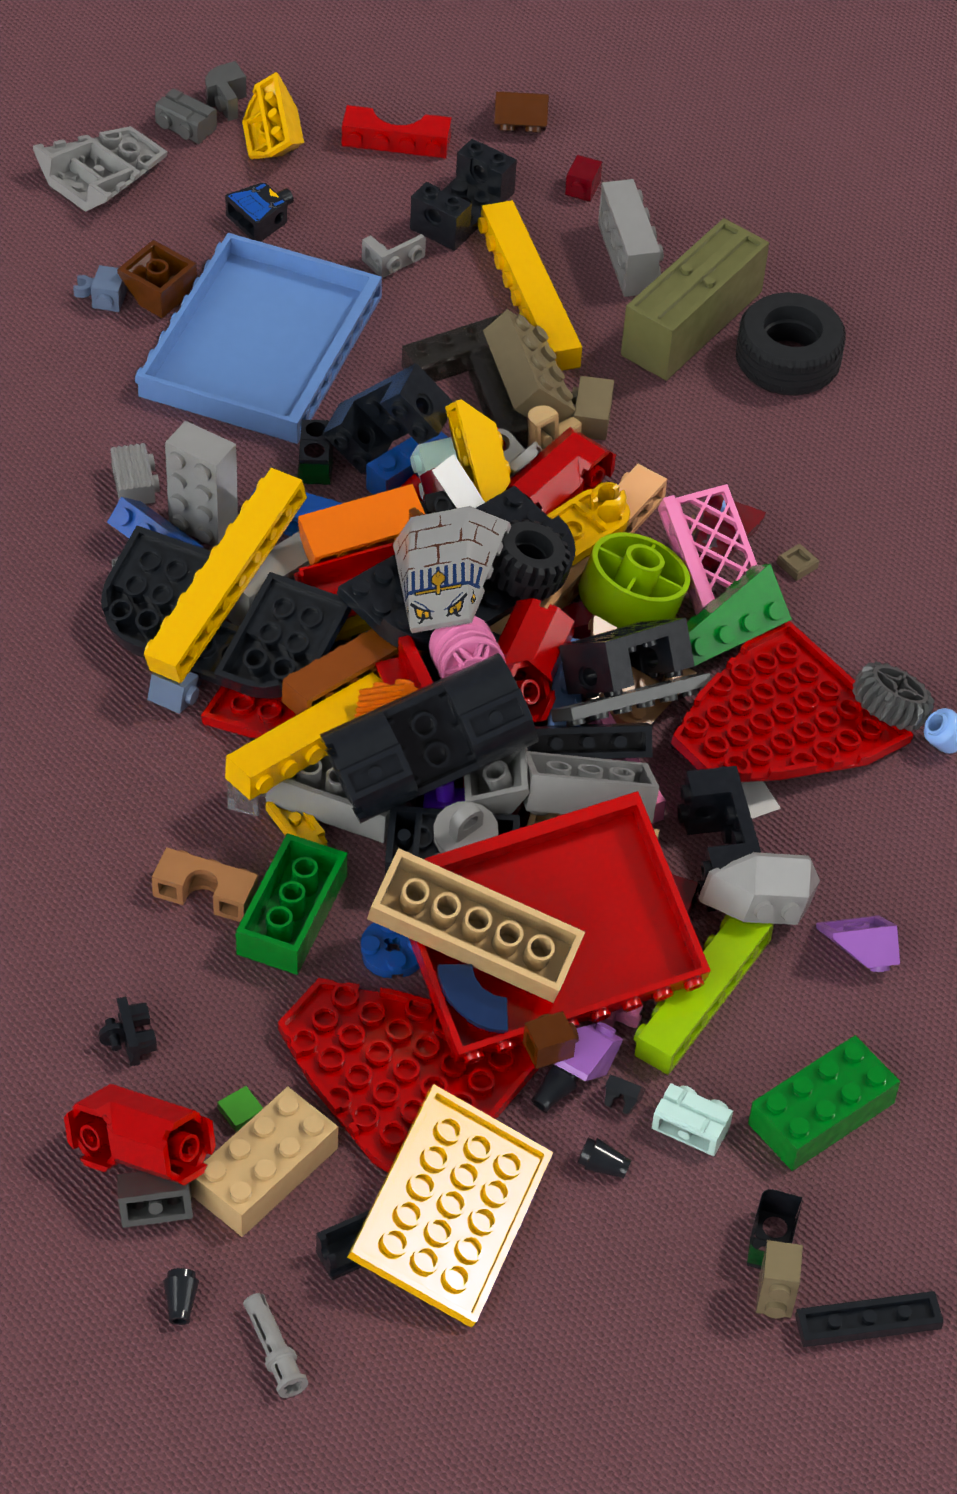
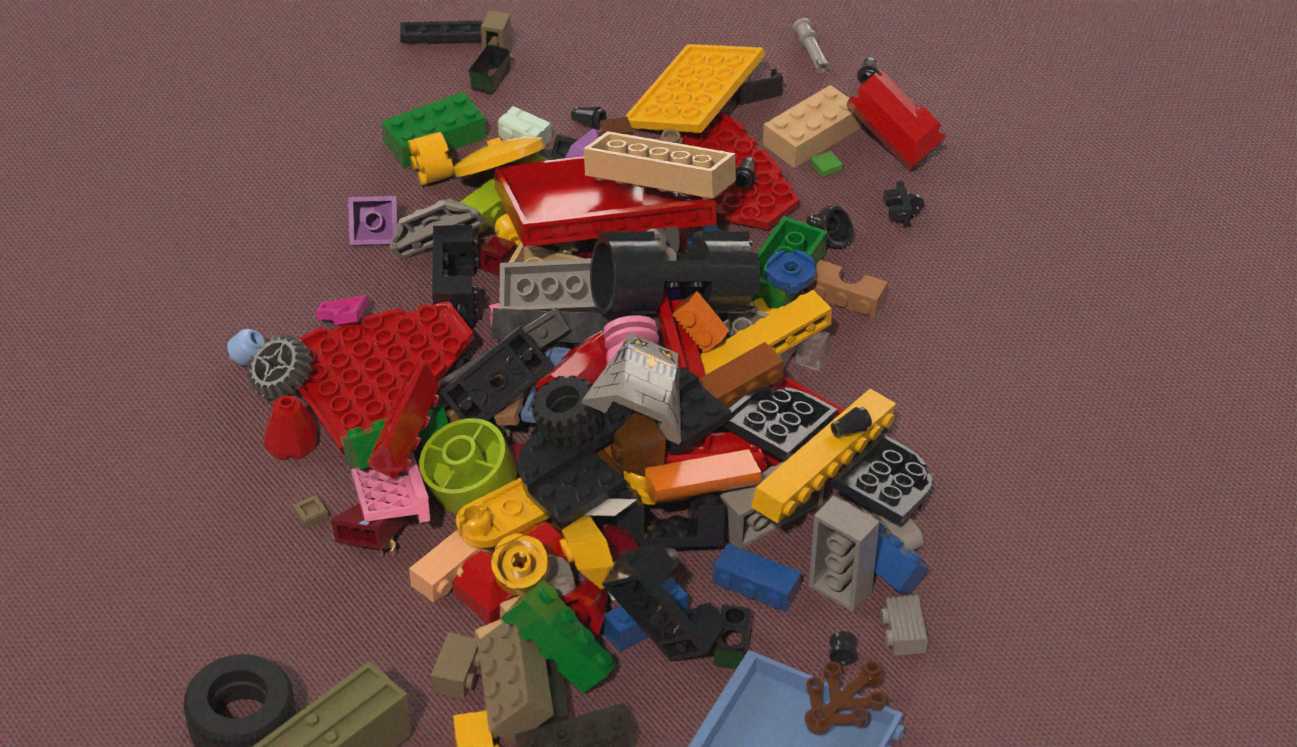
camera: 170 degrees left, 5 degrees down
(195, 585) = (853, 422): none -> black cone
(219, 359) = (820, 718): none -> reddish brown plant
(234, 969) = (835, 222): none -> black piece
(281, 863) = (790, 280): none -> blue plate
(358, 1038) = (745, 173): none -> black cone
(475, 1094) = (671, 136): none -> dark tan plate
(502, 385) = (559, 636): none -> green wedge
(544, 421) = (517, 548): none -> yellow brick
(711, 1017) = (497, 154): none -> yellow dish
(716, 580) = (404, 422): none -> red slope
(808, 1029) = (430, 158): none -> yellow brick
(845, 788) = (343, 310): none -> dark pink tile
(854, 635) = (290, 430): none -> red cone

